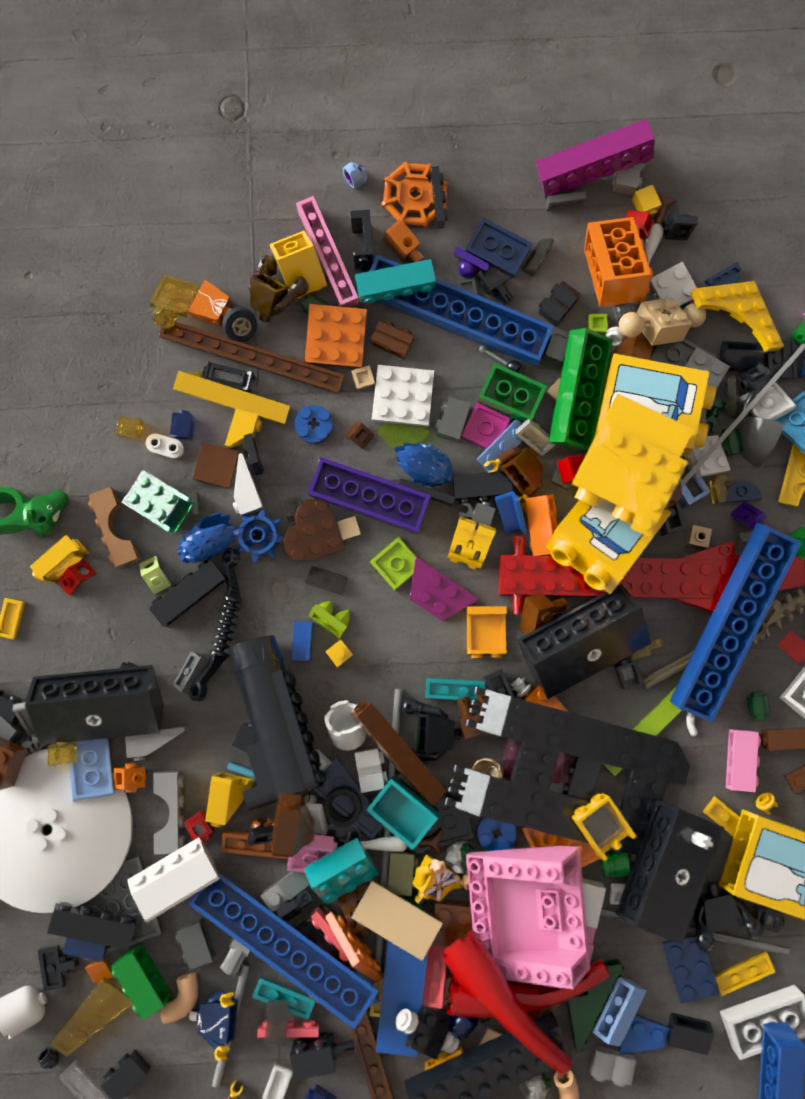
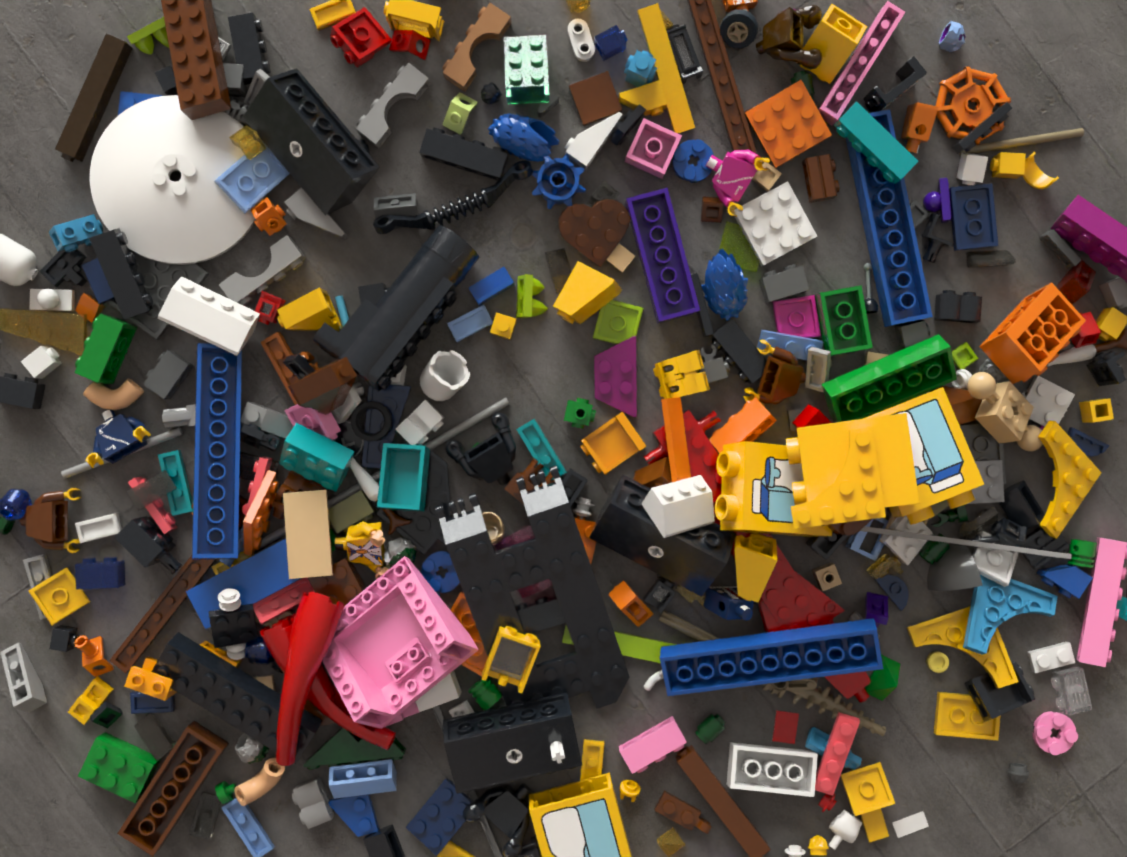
camera: 60 degrees right, 5 degrees up
(34, 941) = (75, 232): none -> dark azure brick
(43, 612) = (359, 37): none -> red plate
(73, 996) = (52, 299): none -> white tile
(105, 599) = (408, 84): none -> light grey arch
(115, 1039) = (42, 361): none -> white brick
(156, 541) = (490, 93): none -> black plate
(218, 416) = (640, 68): none -> dark azure brick
(284, 447) = (652, 148): none -> bright pink brick
(319, 677) = (470, 323): none -> light blue tile
(346, 401) = (734, 175): none -> dark pink torso
(358, 573) = (585, 294): none -> yellow slope
(398, 752) = (452, 436): reddish brown brick -> none
(439, 644) = (571, 416): none -> green brick
(462, 224) = (971, 168): none -> white brick
(466, 177) = (1026, 141): none -> dark tan piece
(477, 197) = (1008, 165): none -> yellow brick
(498, 184) = (1035, 176): none -> yellow helmet
(510, 512) = (733, 393): blue panel -> none
(518, 581) = (676, 439): none -> orange tile
(572, 612) = (680, 506): none -> white slope
(599, 205) = (1077, 282): none -> clear red slope
(620, 701) = (630, 604): none -> orange slope
(654, 585) = (754, 564): none -> yellow slope
(670, 624) = (732, 607): none -> dark blue torso
(705, 253) = (1096, 410): none -> yellow brick

